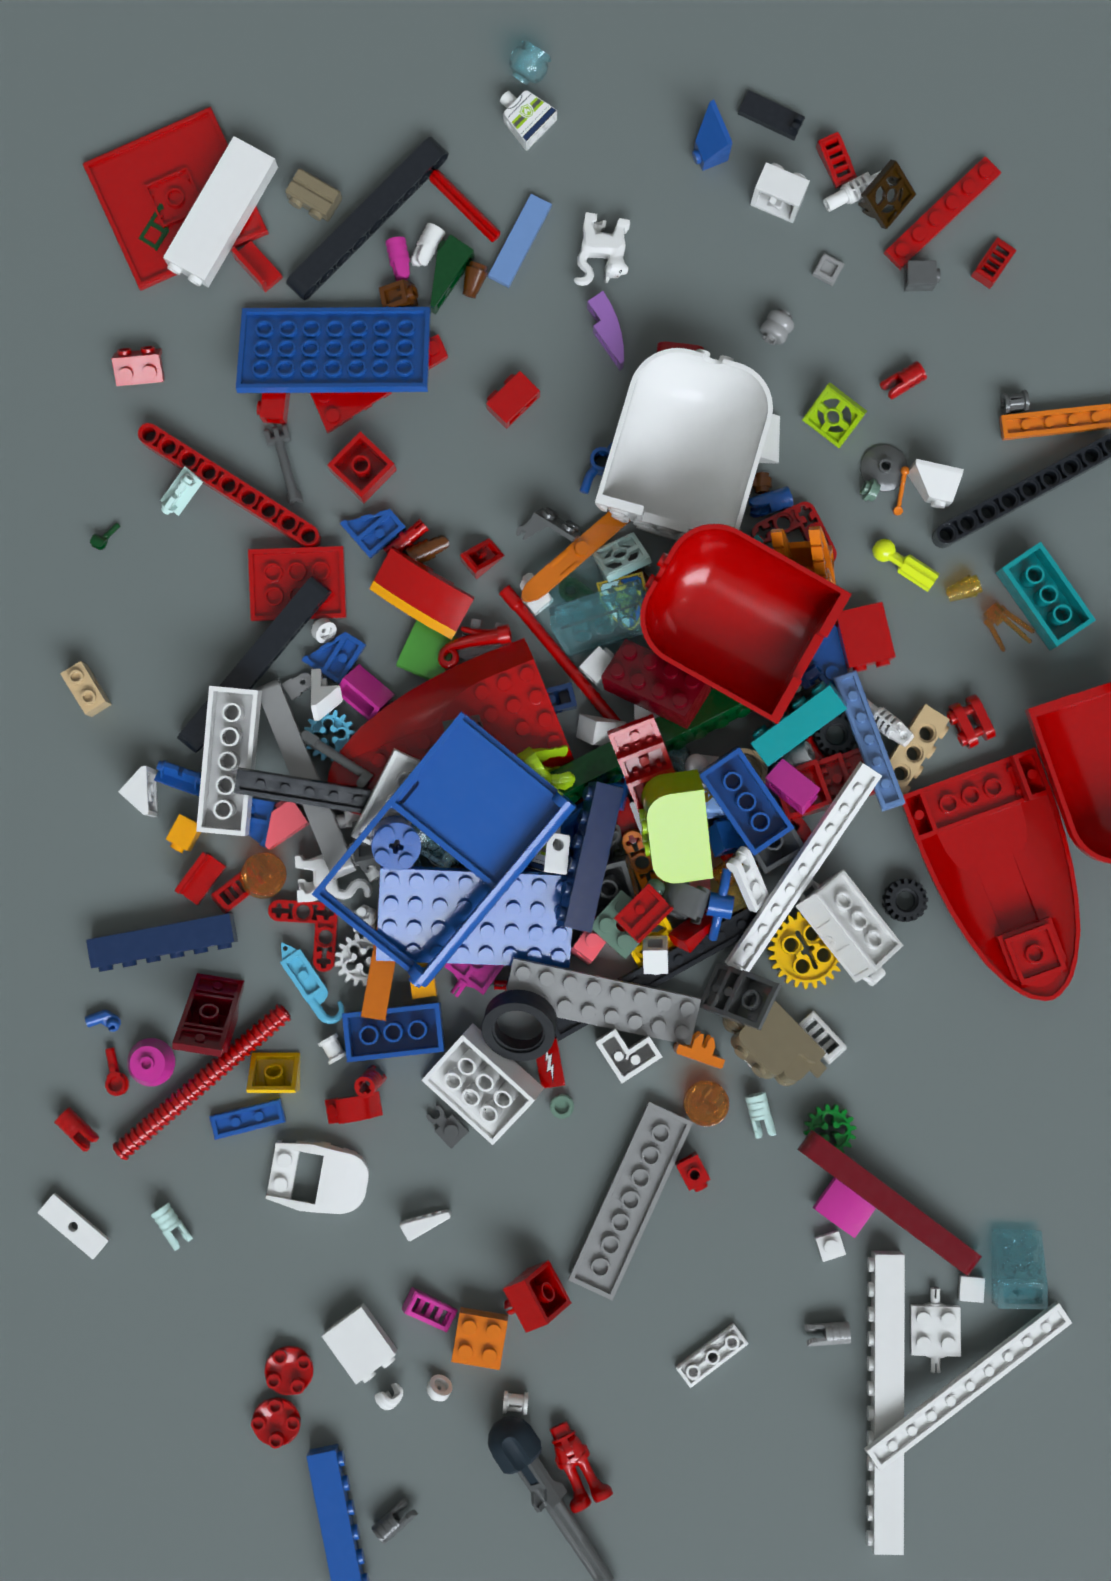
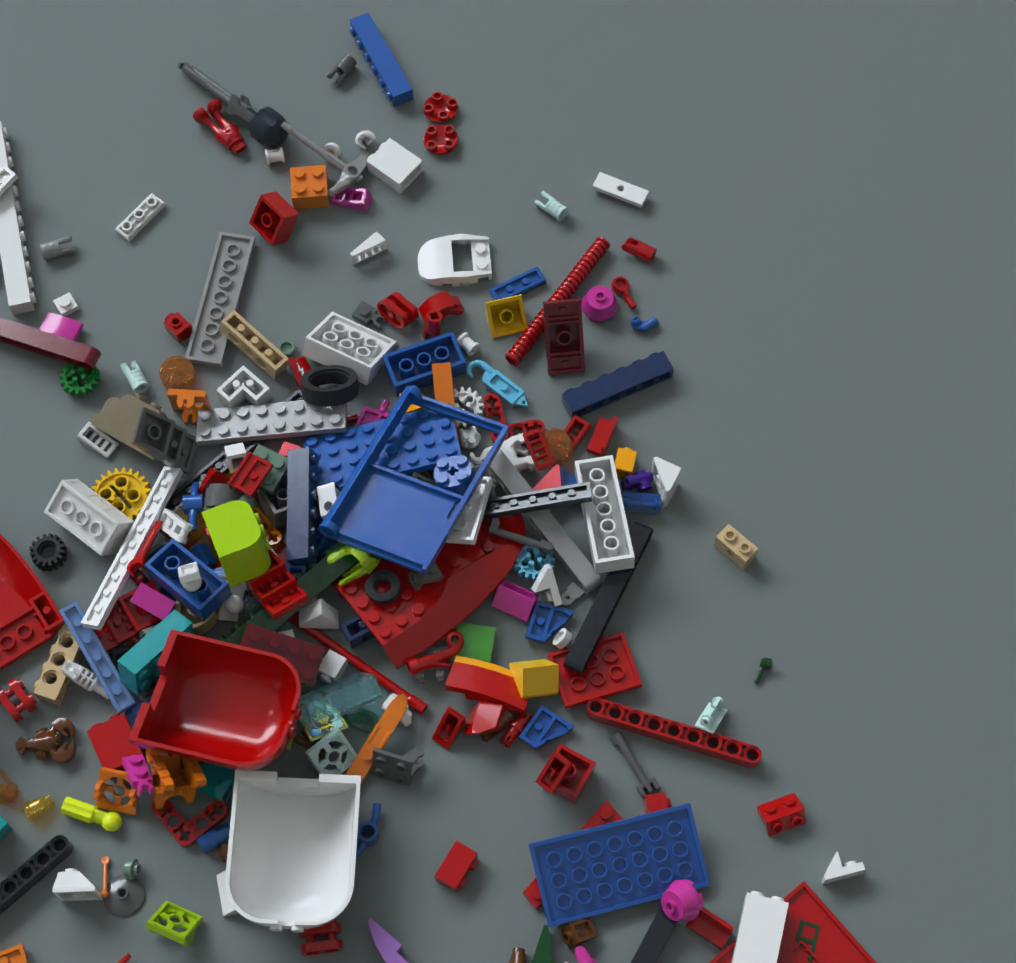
camera: 170 degrees right, 20 degrees down
(101, 287) = (837, 872): none -> white slope
(172, 804) = (640, 479): none -> dark purple plate
(278, 288) = (682, 901): none -> dark pink cone
(283, 890) = (535, 433): none -> red slope
(367, 589) = (536, 677): none -> yellow slope
(377, 459) = (554, 772): none -> red slope
(408, 1119) = (397, 310): none -> red brick
(421, 1347) = (350, 172): none -> light grey piece
(440, 551) = (484, 717): none -> red slope
(523, 715) = (386, 598): none -> black tyre
(601, 1113) = (254, 344): none -> tan brick
(743, 790) = (190, 576): none -> white tile
(797, 842) = (140, 559): none -> red piece
(845, 576) = (138, 773): none -> dark pink plate
(868, 591) = (102, 801): none -> orange piece
(939, 661) = (49, 741): none -> reddish brown animal

